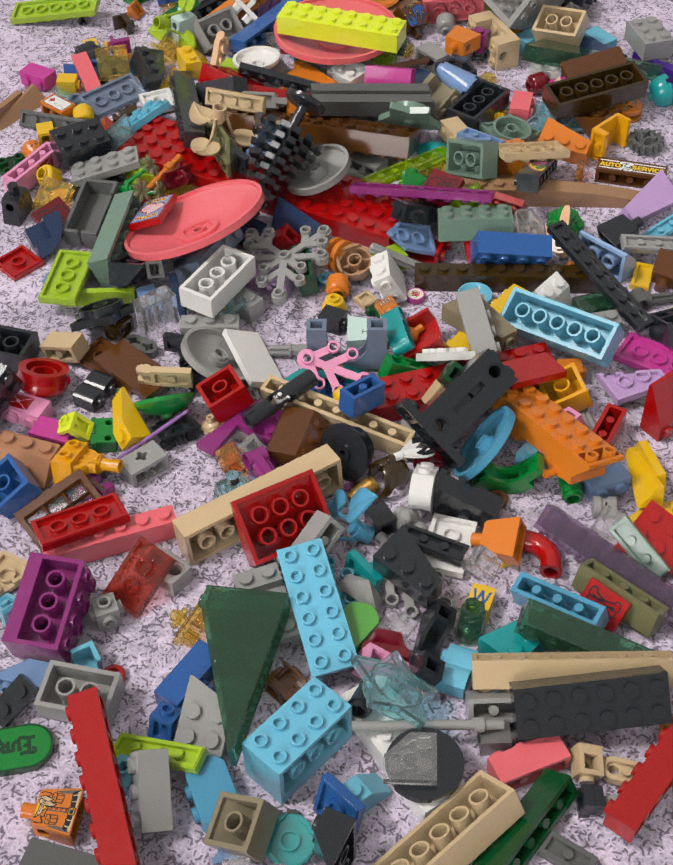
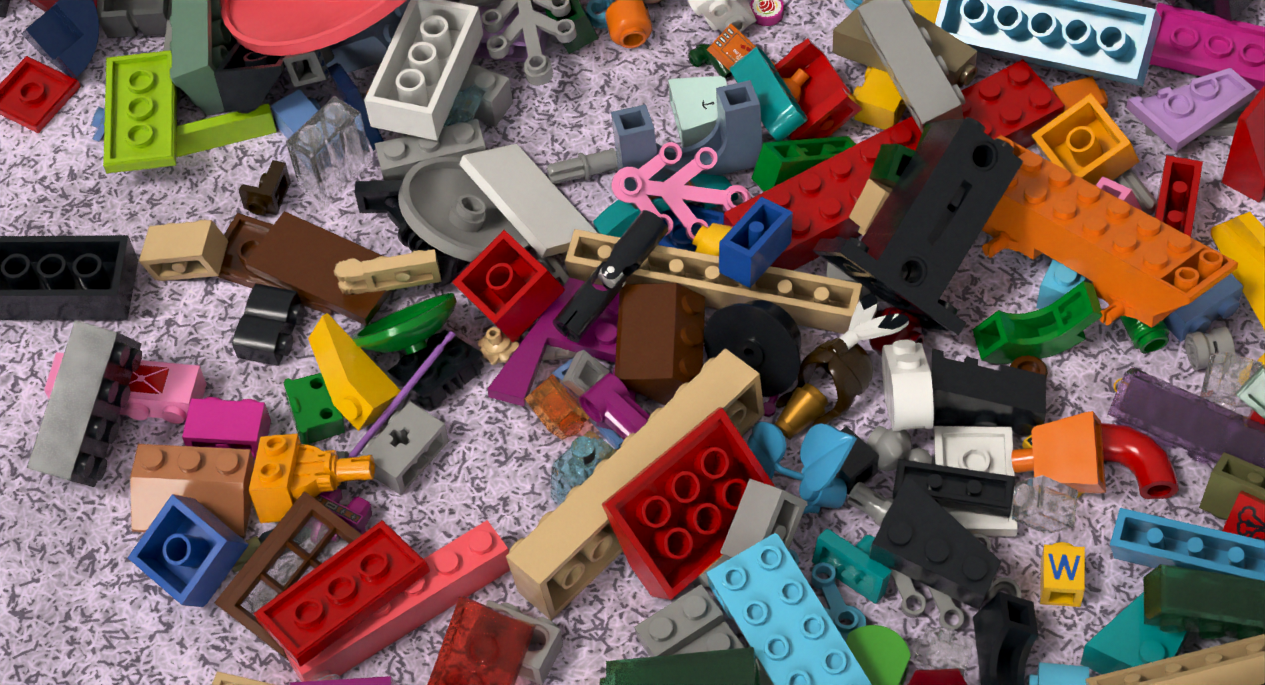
camera: 10 degrees left, 10 degrees up
(44, 377) = (170, 320): red piece -> none
(75, 425) = (264, 407): neon yellow bracket -> none
(101, 313) = (230, 171): black plate -> none
(143, 344) = (320, 212): dark grey beam -> none
(335, 300) = (632, 61): yellow cone -> none
(336, 319) = (640, 87): black brick -> none
(361, 590) = (859, 602): light grey slope -> none
(365, 299) = (683, 36): tan tile -> none
(445, 354) = (869, 127): white plate -> none
(471, 622) = (1062, 619): clear green plant -> none
(486, 442) = (993, 282): dark azure dish -> none
(535, 370) = (1032, 120): red tile -> none

